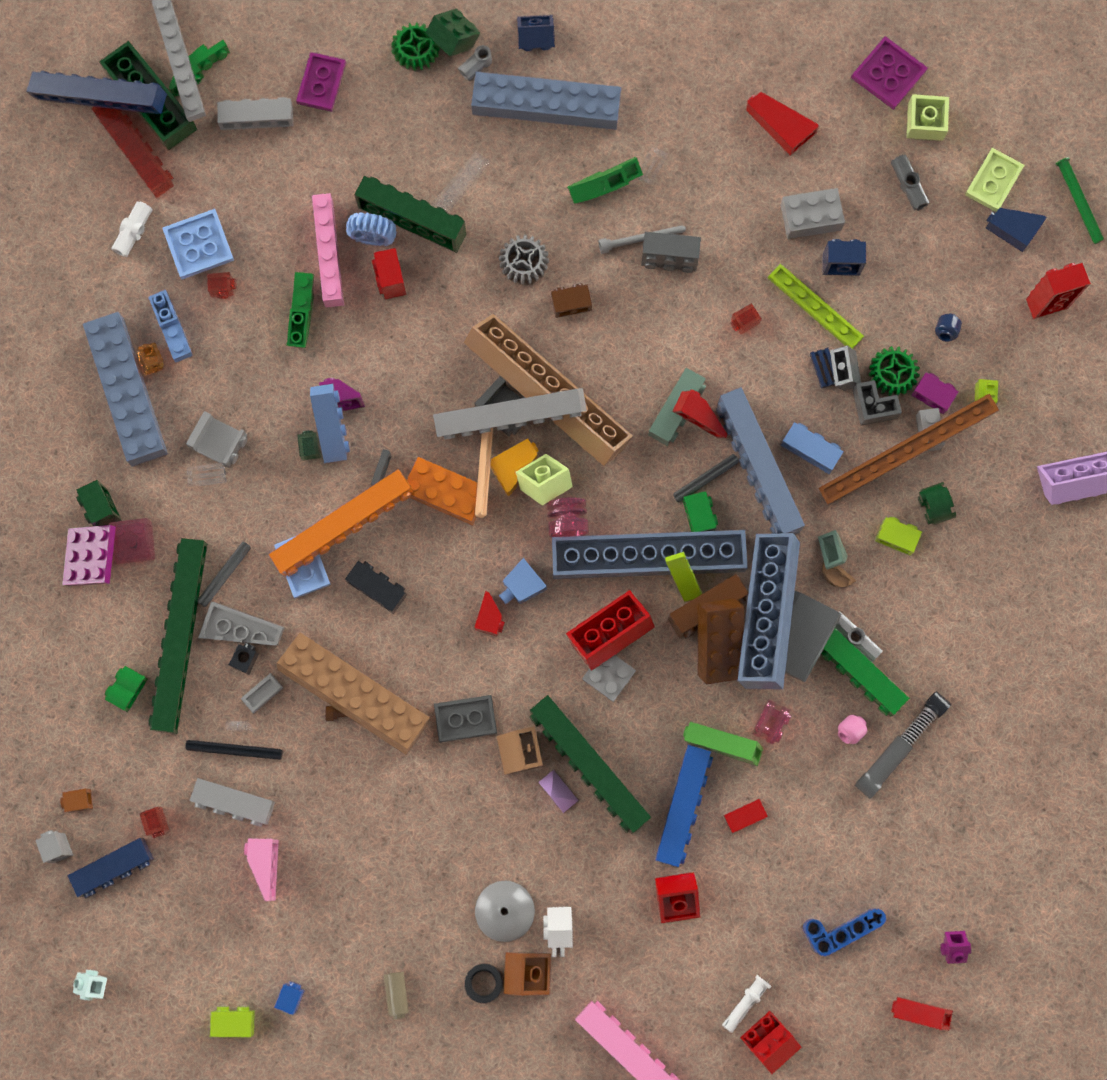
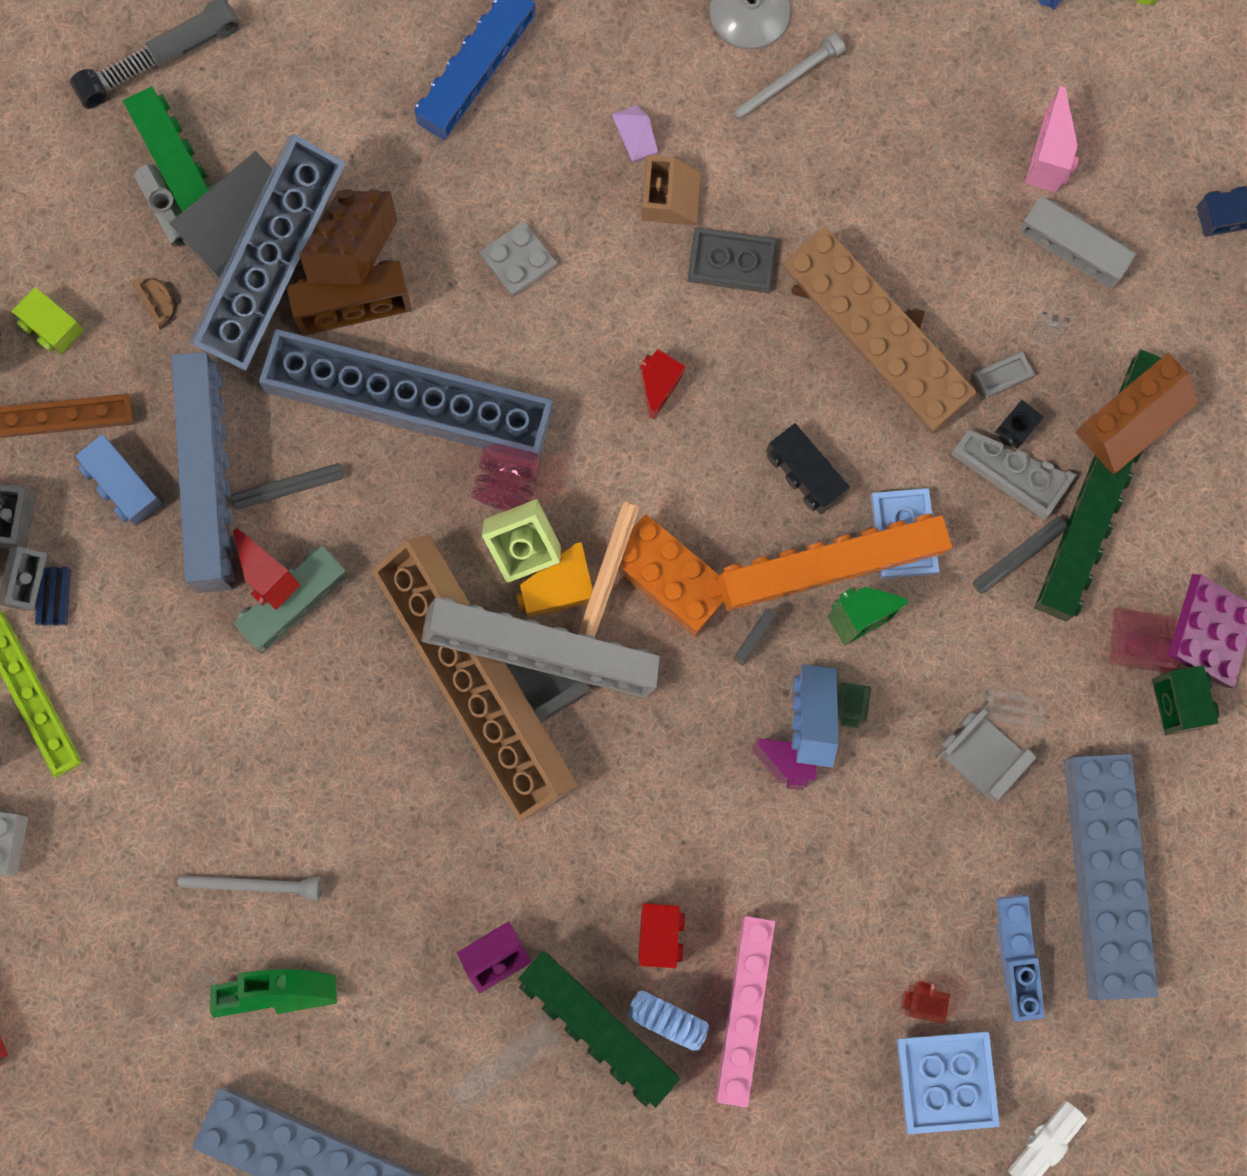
camera: 170 degrees left, 0 degrees up
(125, 689) = (1192, 433): green brick -> none
(150, 358) = (1062, 929): clear orange brick -> none
(154, 822) = (1188, 247): clear red brick -> none
(166, 682) = (1139, 414): none -> dark orange slope
(232, 749) = (1077, 318): black axle -> none
(301, 310) = (812, 923): green slope -> none
(314, 496) = (863, 611): none -> green slope
(440, 896) = (831, 47): none -> light grey piece
(484, 236) = (494, 957): none -> magenta brick
(512, 268) = (419, 909): light grey gear -> none
(522, 584) = (599, 412): medium blue torso -> none
(571, 300) = (392, 812): reddish brown brick -> none
(591, 766) = (584, 142): dark green brick -> none
(610, 630) = (497, 306): red brick -> none
(670, 251) = (213, 838): dark grey brick -> none
(683, 576) = (369, 344): lime tile -> none
(699, 512) = (314, 434): green brick -> none
(723, 743) = (393, 119): bright green slope -> none
(745, 319) = (140, 702): clear red brick -> none
(745, 816) = (397, 31): red tile -> none
(782, 717) = (322, 127): clear pink brick -> none
(832, 549) = (147, 328): sand green slope -> none
(852, 729) = (215, 90): bright pink head -> none

